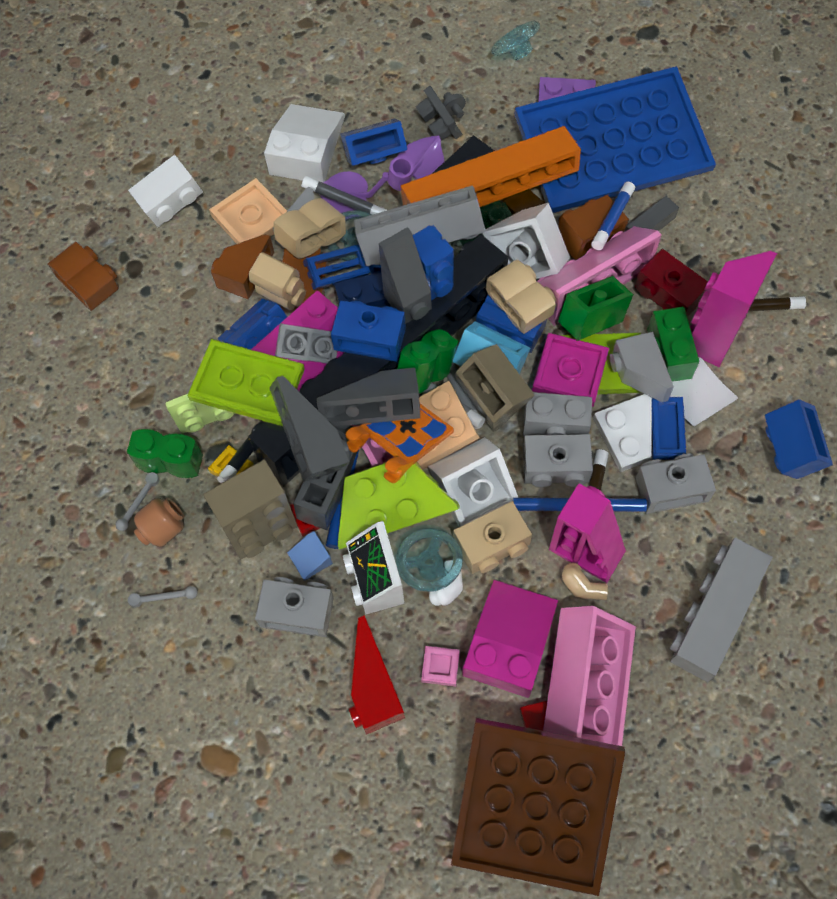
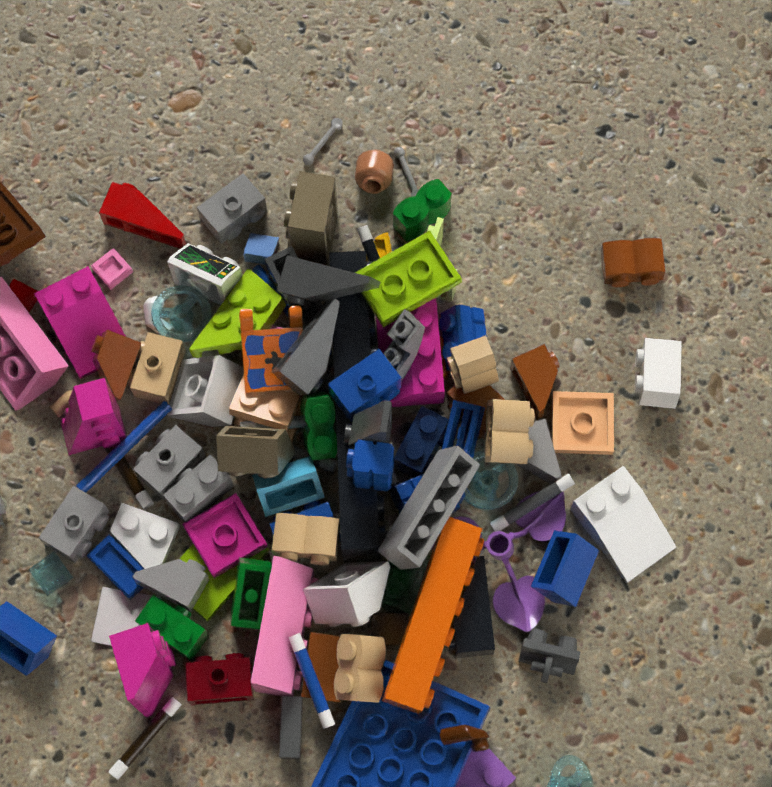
camera: 130 degrees right, 5 degrees up
(520, 570) = (115, 359): none -> dark orange slope
(546, 95) = (465, 733): none -> reddish brown arm
(575, 190) = (359, 668): none -> tan brick
(726, 471) = (50, 573): none -> clear light blue tile

